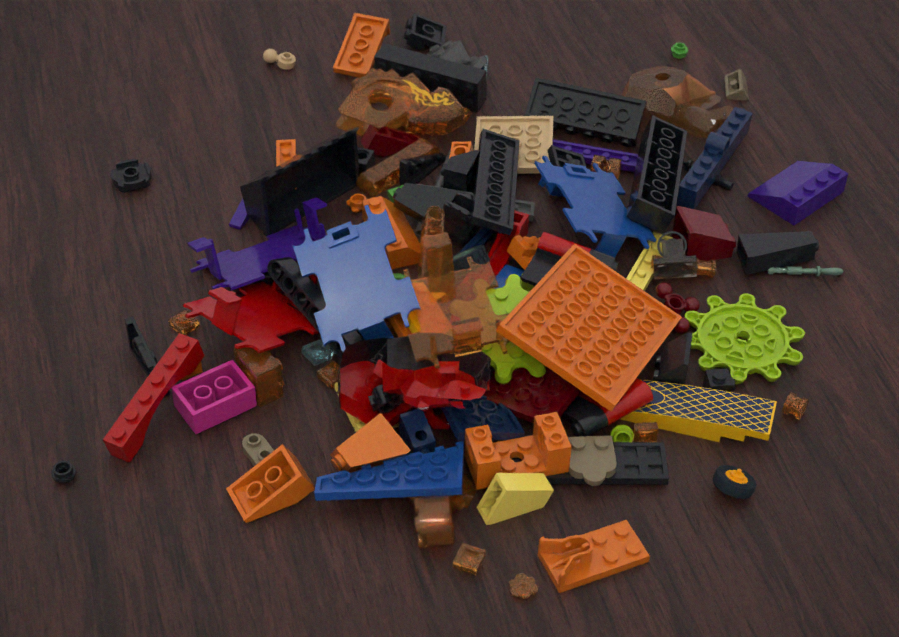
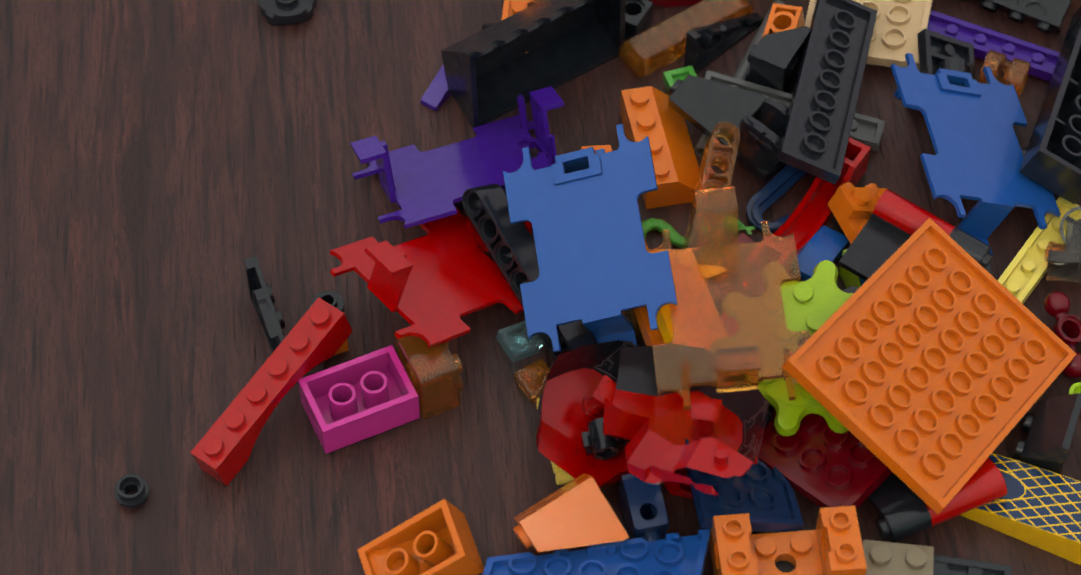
camera: 10 degrees right, 10 degrees up
(182, 324) = (324, 262): clear orange plate -> none
(256, 448) = (410, 493): dark tan plate -> none
(355, 202) = (613, 85): orange plate -> none
(478, 254) = (775, 209): black wheel -> none
(622, 433) = (950, 543): lime plate -> none
(645, 432) = (985, 546): clear orange plate -> none

